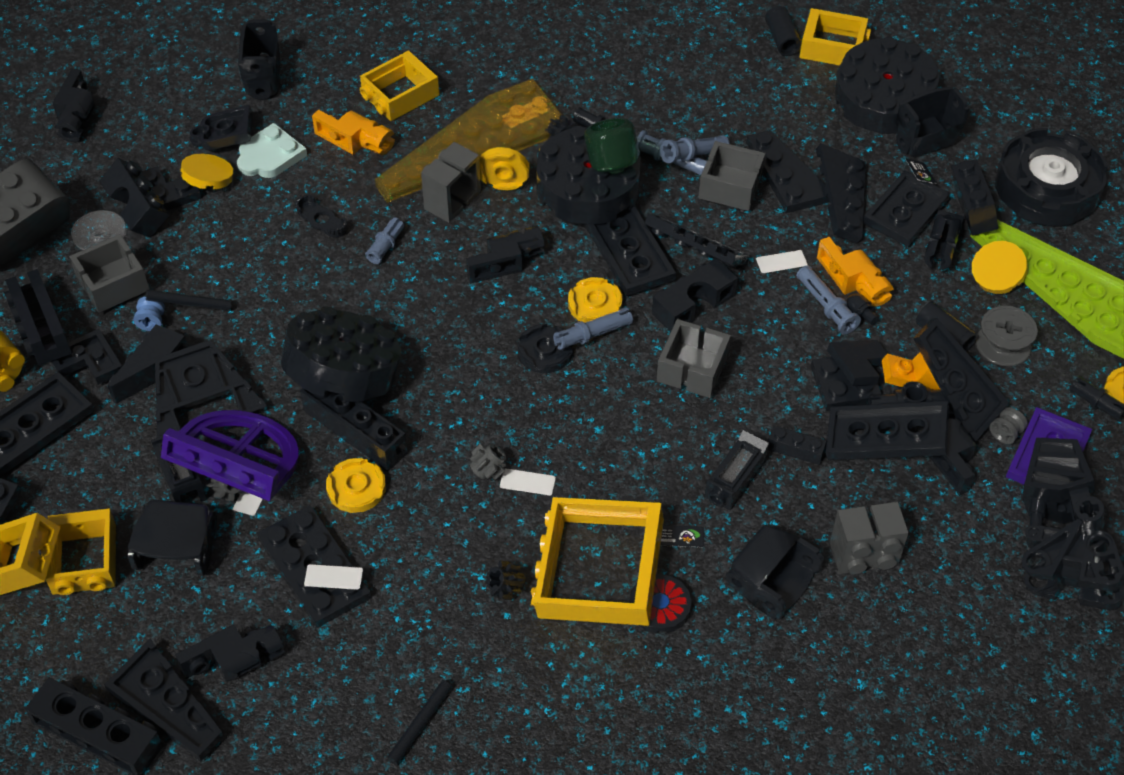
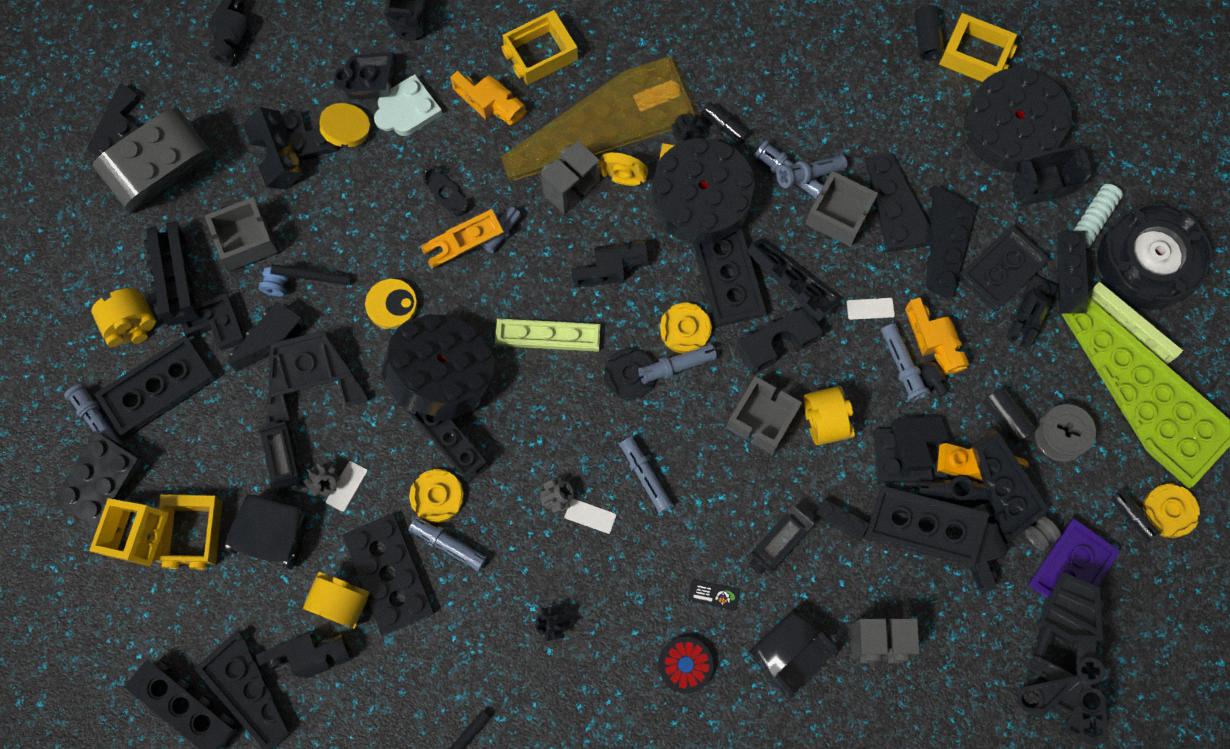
camera: 10 degrees right, 20 degrees up
(96, 228) = (232, 172): clear dish -> none
(229, 466) = (317, 475): dark purple window -> none
(260, 589) = (336, 600): none -> yellow brick
(272, 317) = (391, 303): none -> yellow tile
(333, 576) = (402, 594): white sticker -> none
(346, 248) = (463, 238): none -> light orange plate
(363, 520) = (447, 543): none -> sand blue pin
(451, 325) = (547, 335): none -> yellowish green tile
(560, 411) = (640, 465): none -> sand blue pin
(598, 512) = (598, 593): yellow window -> none
(611, 145) = (726, 177): clear green head -> none
(760, 348) = (828, 415): none -> yellow brick
(920, 171) = (1027, 226): black sticker -> none
(989, 147) = (1098, 212): none -> light aqua piece
(999, 267) = (1077, 354): yellow tile -> none
(1049, 233) = (1134, 324): none -> yellowish green tile

